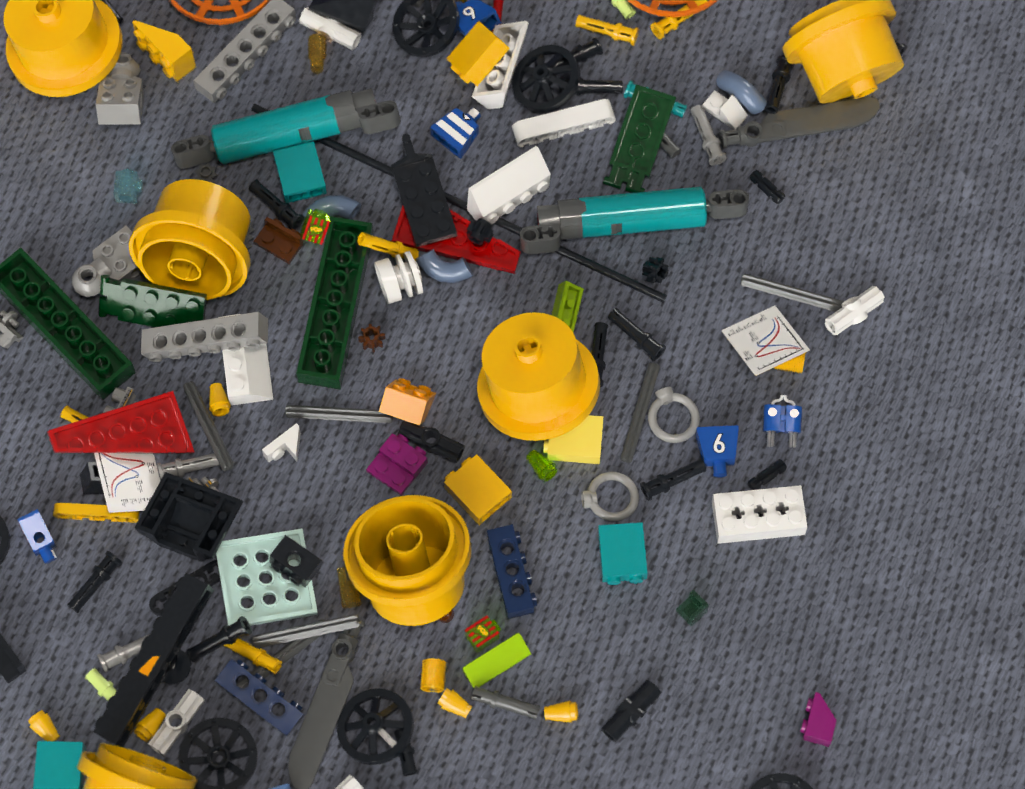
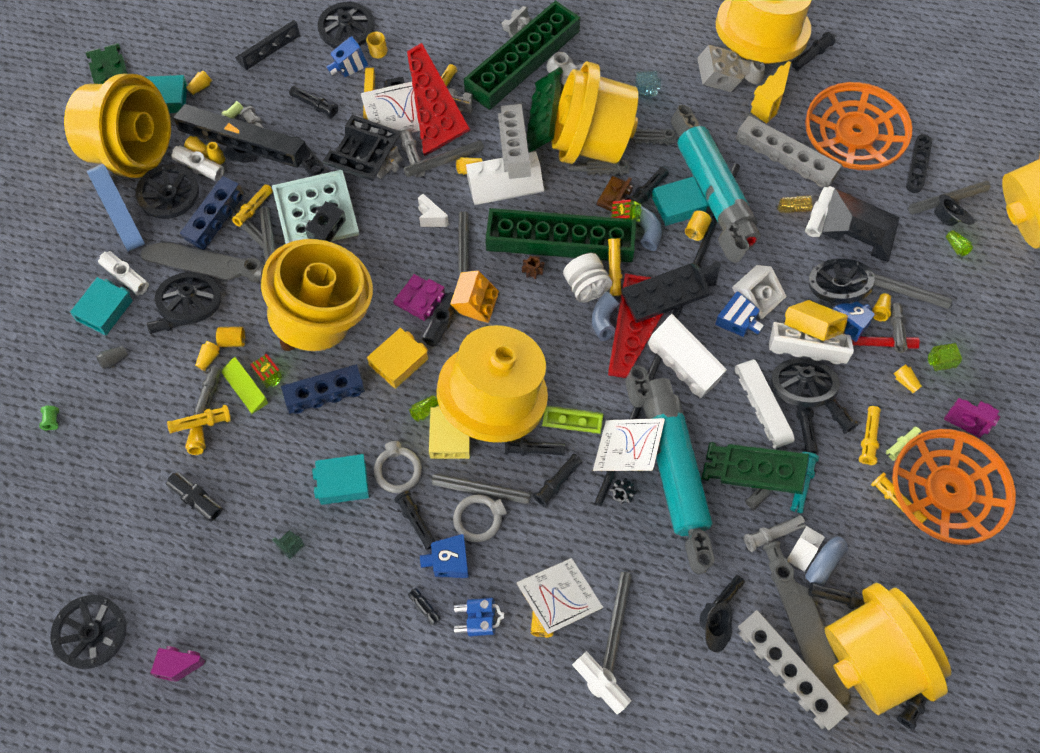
camera: 85 degrees right, 5 degrees down
(16, 489) = (377, 44): none -> yellow piece
(169, 704) = (215, 153): none -> yellow cone
(227, 635) = (263, 184): black pin -> none
(335, 157) = (699, 222): none -> yellow piece
(424, 105) = (761, 289): none -> white slope
(480, 231) = (638, 336): black gear -> none
(538, 696) = (208, 417): none -> yellow pin
(607, 256) = (629, 445): none -> white sticker
(752, 526) = (371, 608): white brick -> none
(799, 201) = (717, 623): none -> black piece
(890, 109) = (835, 710): none -> light grey brick

